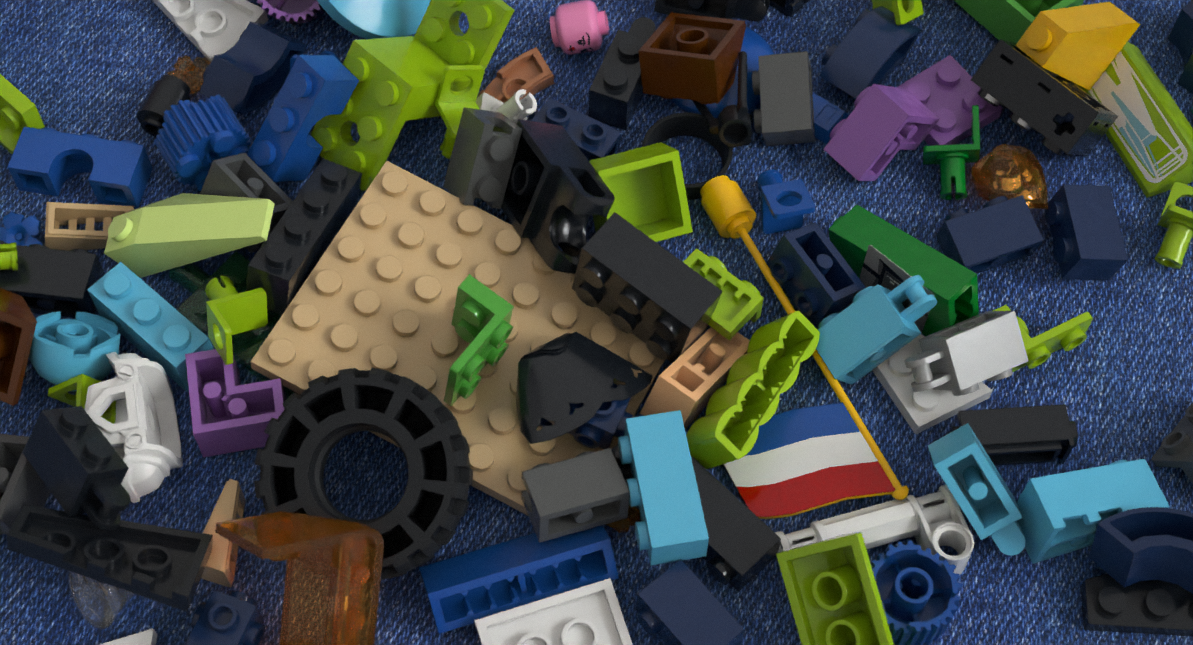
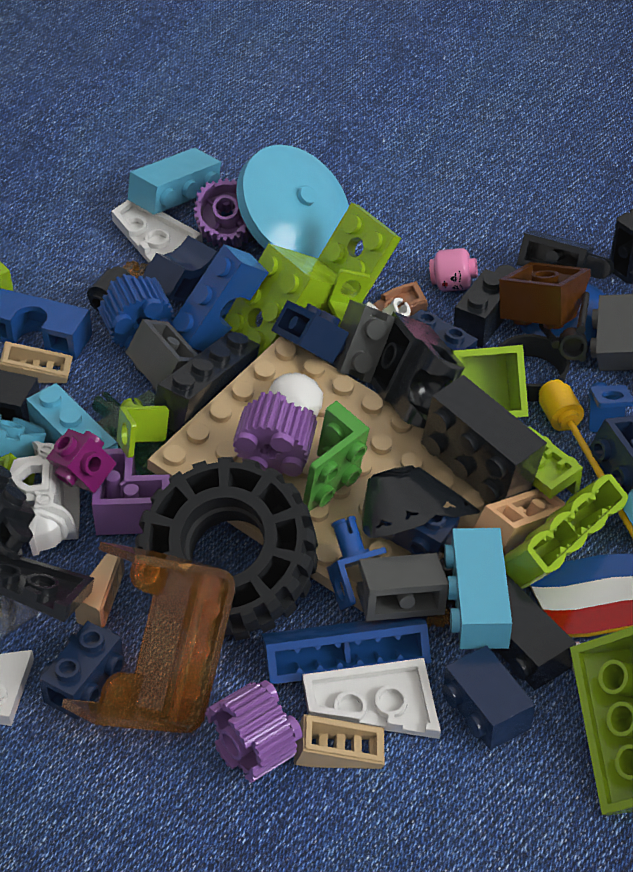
camera: 10 degrees right, 15 degrees down
(162, 377) = (81, 460): none -> magenta brick
(186, 230) = (104, 369): yellowish green wedge -> none
(400, 320) = (275, 434): none -> medium lavender brick
(414, 257) = (299, 390): none -> white hair
(421, 155) = (311, 330): none -> dark blue brick
(513, 462) = (351, 550): none -> blue bracket

